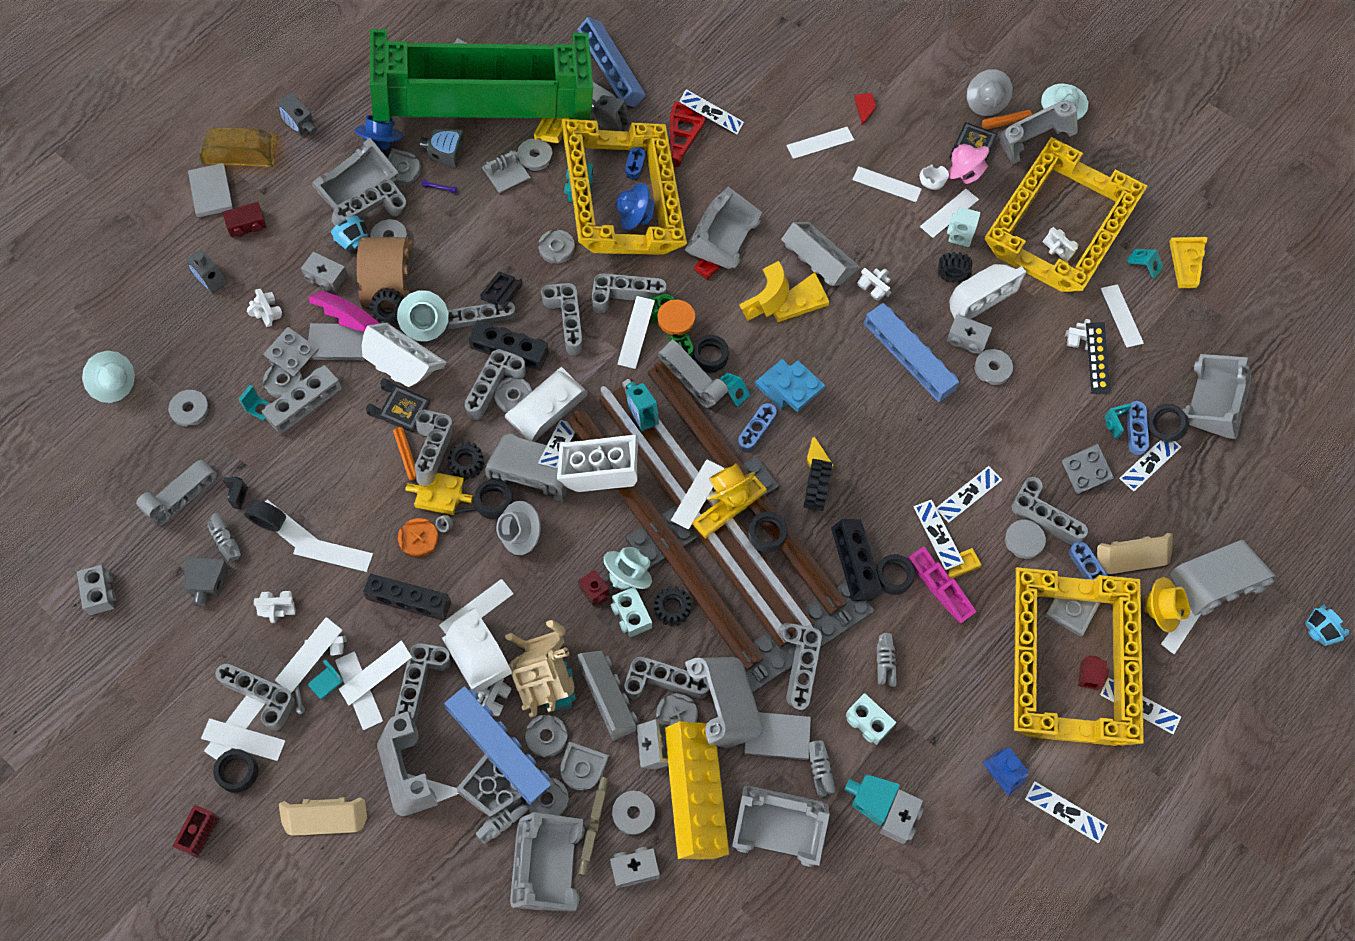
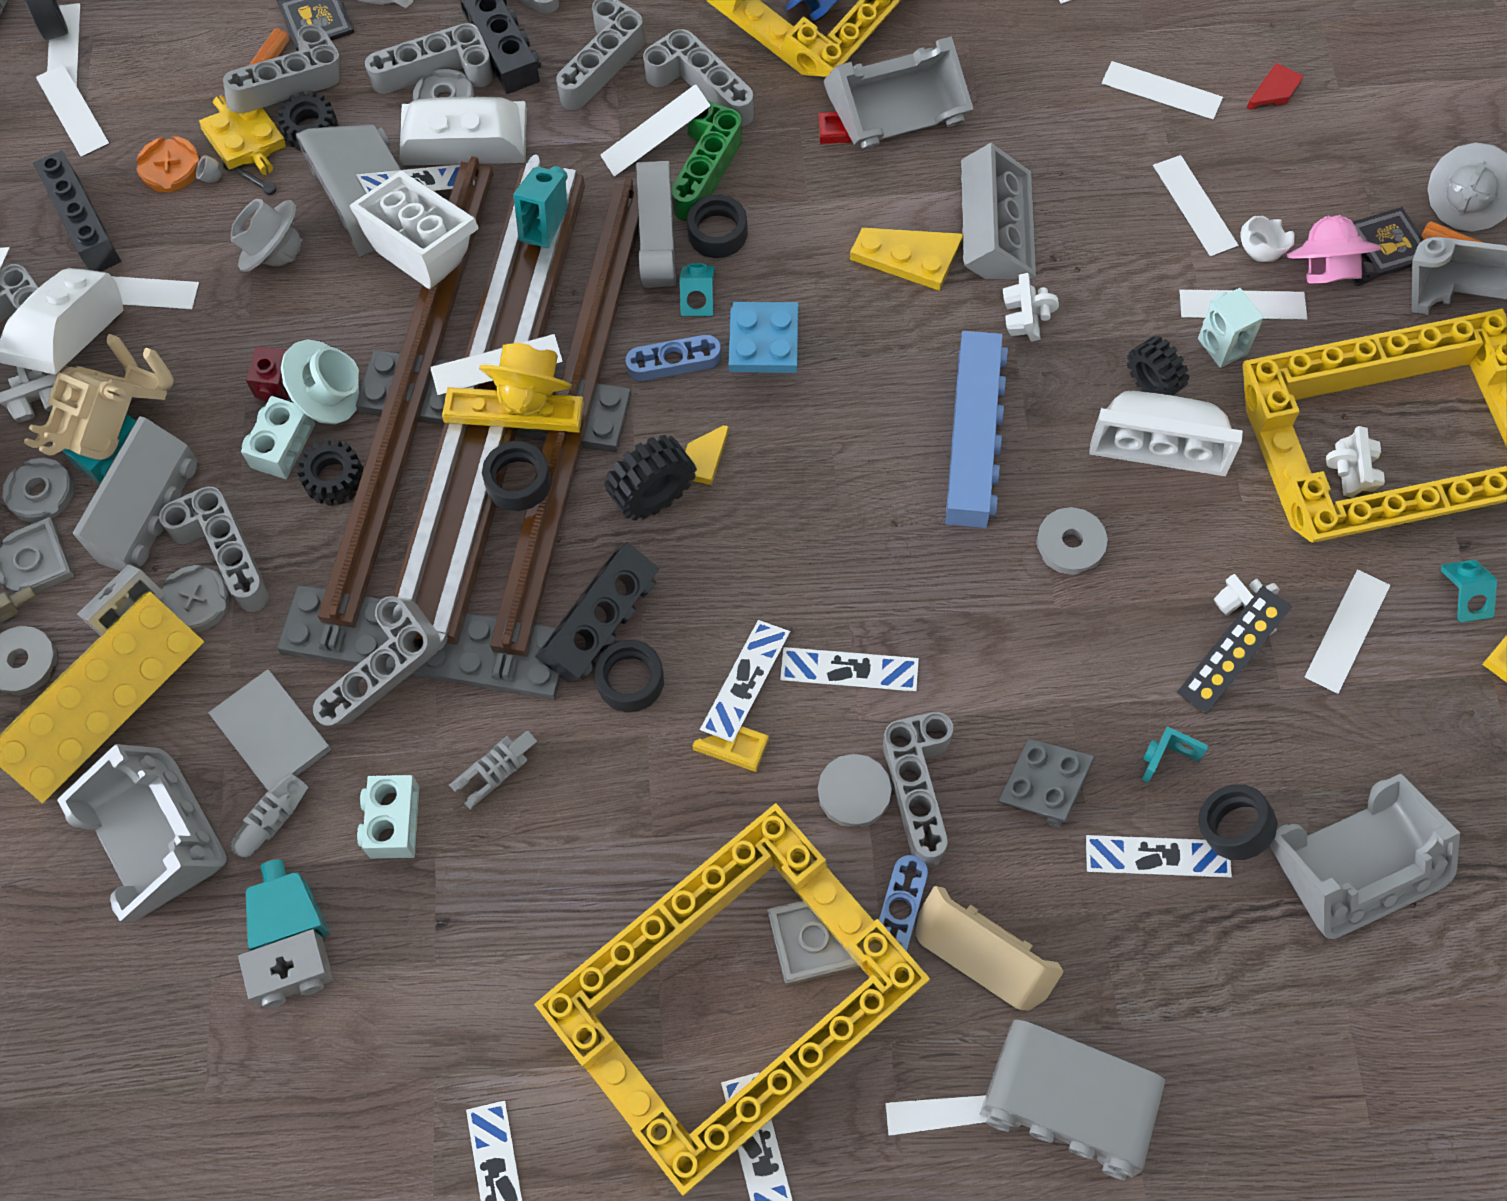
camera: 50 degrees right, 0 degrees up
(492, 485) = (281, 166): black tyre -> none
(676, 317) = (714, 145): orange tile -> none
(733, 699) = (242, 625): light grey windscreen -> none
(771, 297) = (871, 213): yellow arch -> none
(940, 584) = (673, 744): dark pink slope -> none
(968, 334) = (1080, 470): light grey brick -> none
(1007, 769) = (473, 1047): blue torso -> none
(1093, 672) = (737, 1042): dark red brick -> none
(1134, 435) = (1201, 768): medium blue beam -> none
(1165, 604) = (939, 1053): yellow helmet -> none

